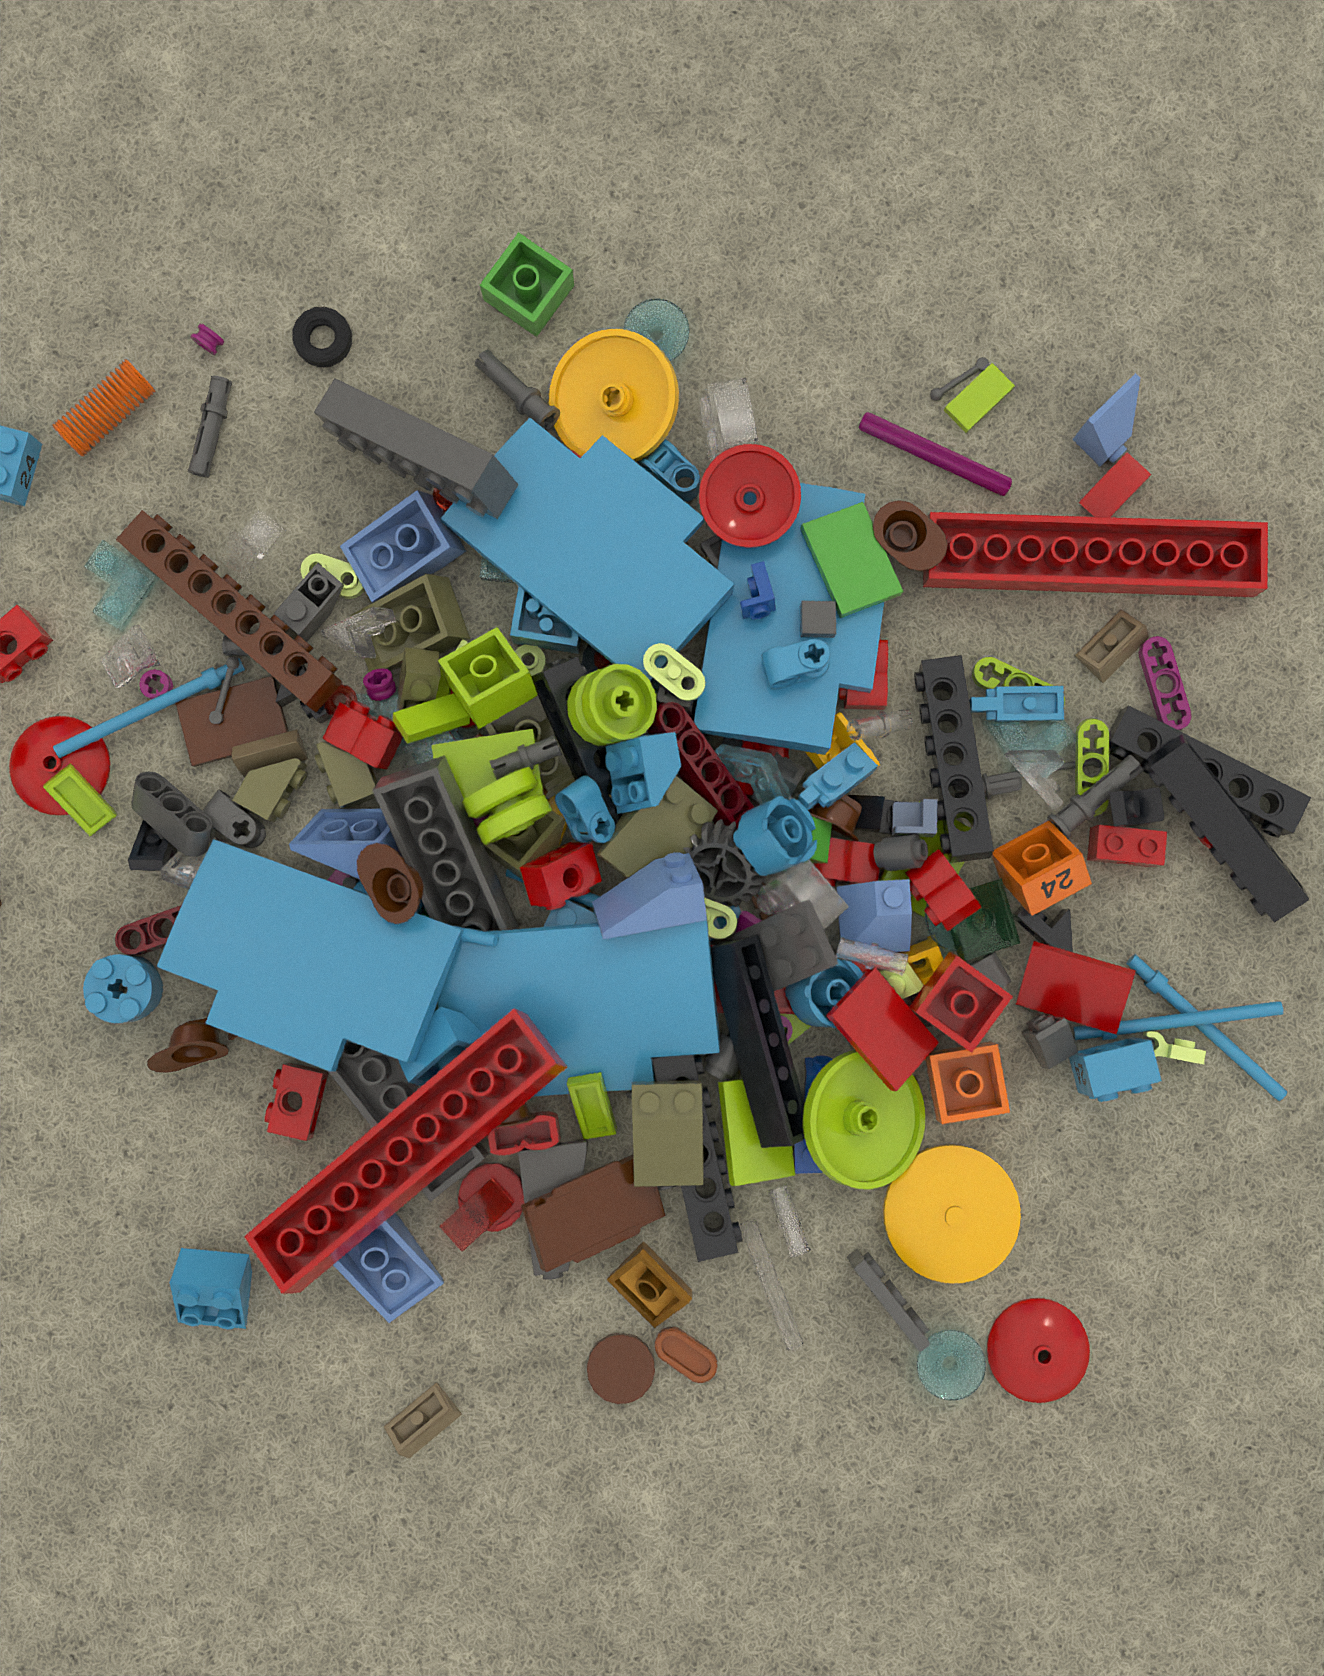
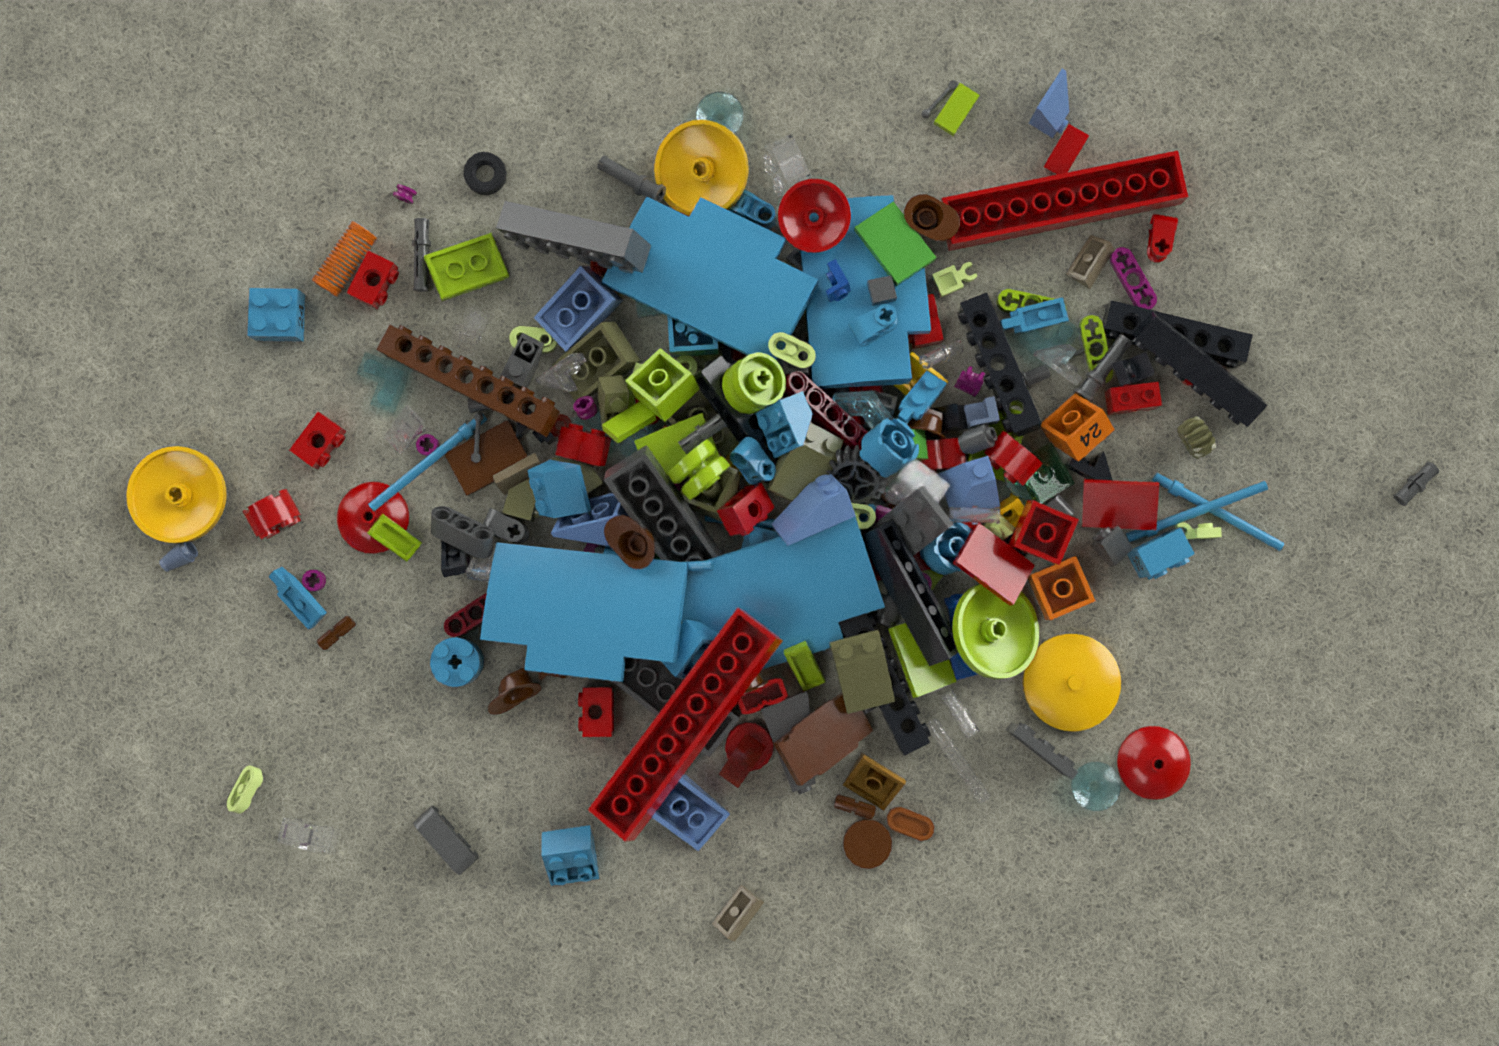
camera: 10 degrees left, 0 degrees up
(48, 1227) = (445, 841): none -> dark grey beam
(136, 428) = (371, 267): none -> red brick
(266, 456) = (466, 266): none -> lime tile
(314, 787) = (558, 489): none -> dark azure slope
(527, 284) = (621, 103): bright green brick -> none
(609, 1309) = (848, 804): none -> reddish brown piece
(909, 771) = (970, 382): none -> magenta plate
(915, 626) = (950, 280): none -> yellowish green plate
(935, 454) = (935, 155): magenta axle -> none
(1201, 920) = (1196, 437): none -> olive gear
(1218, 632) = (1161, 234): none -> red piece

